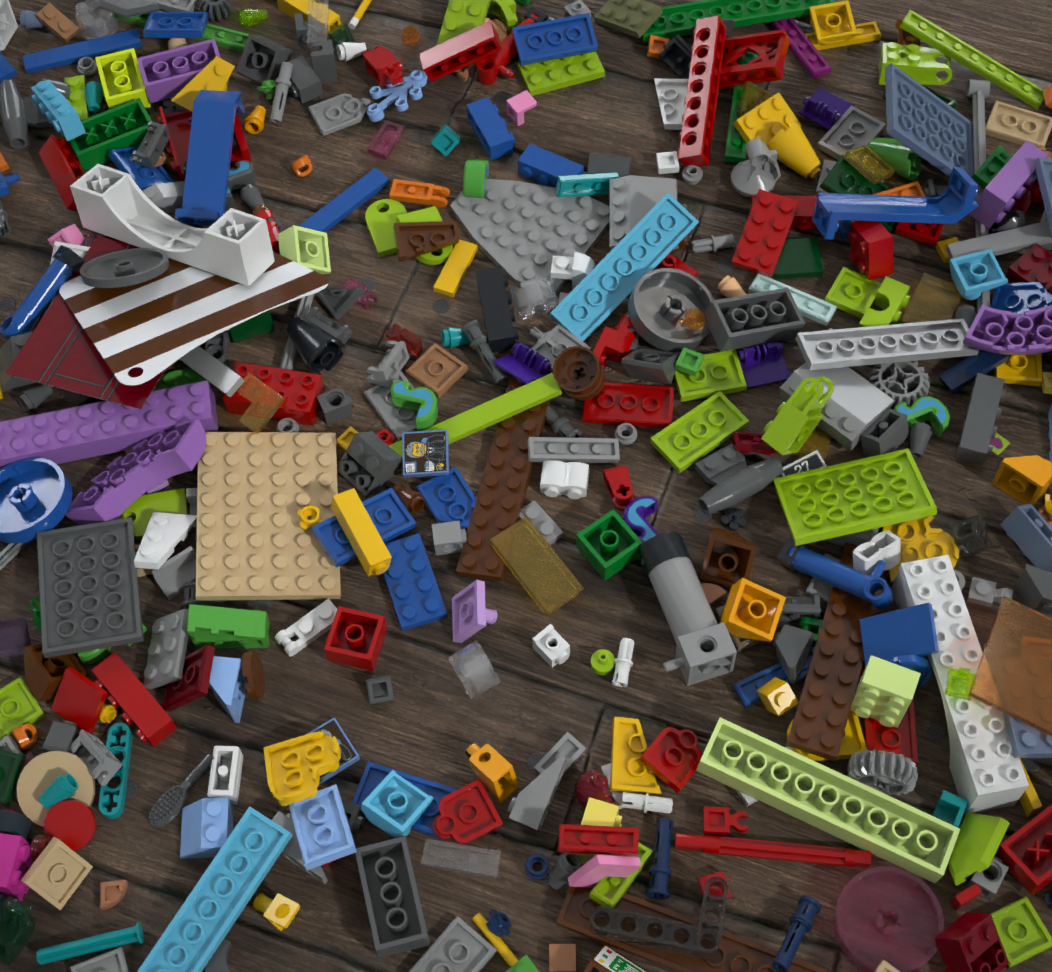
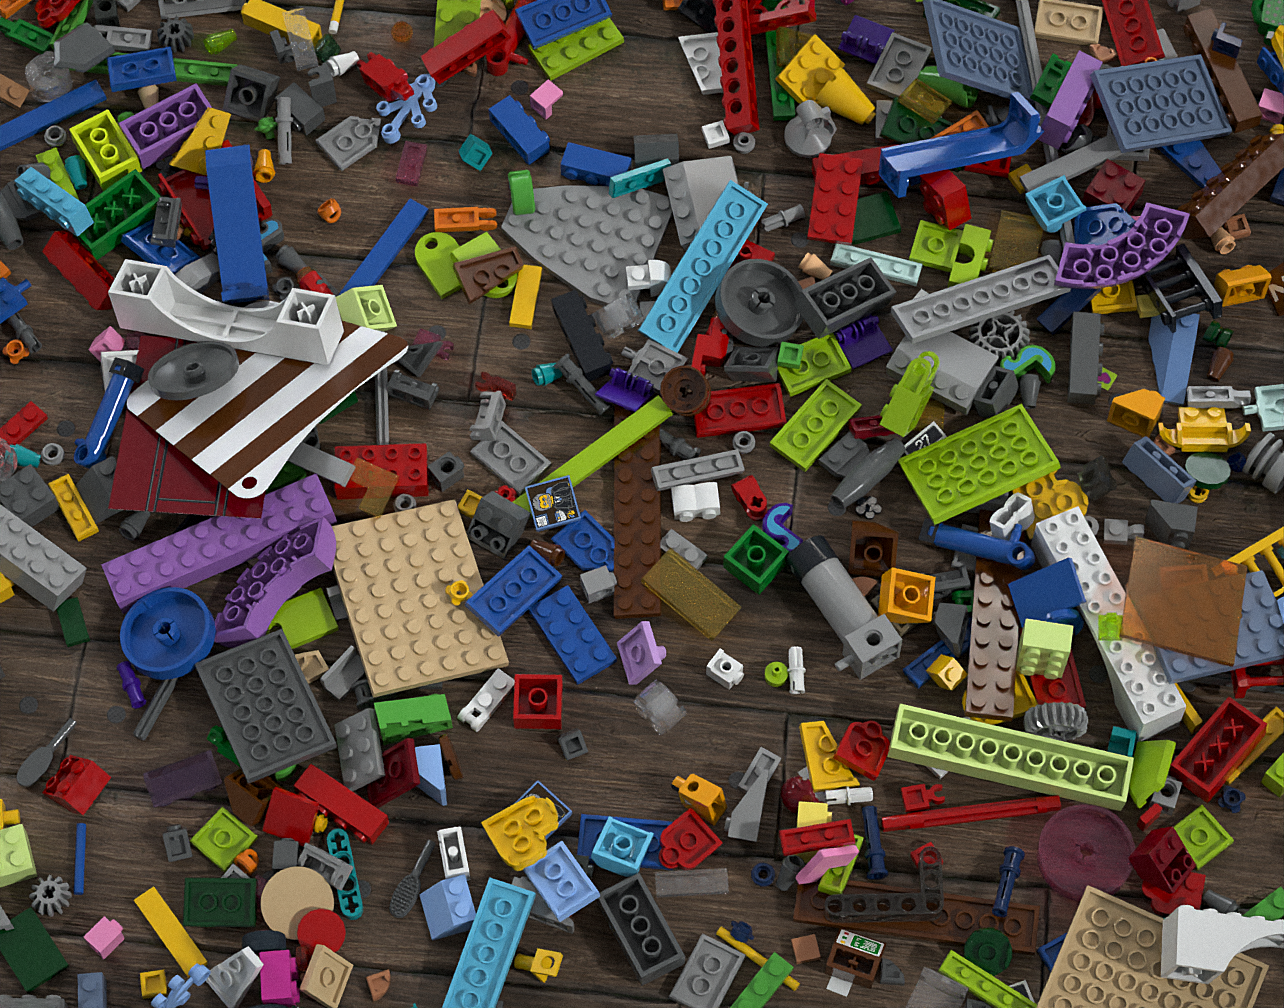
camera: 15 degrees left, 5 degrees up
(59, 790) = (304, 902): teal cone -> none
(161, 537) = (319, 642): white wing -> none
(316, 346) = (407, 411): black cone -> none
(361, 532) = (516, 597): yellow brick -> none
(417, 399) = (529, 449): bright green animal -> none
(436, 370) = (537, 412): medium nougat tile -> none
(693, 319) = (785, 310): clear orange plate -> none

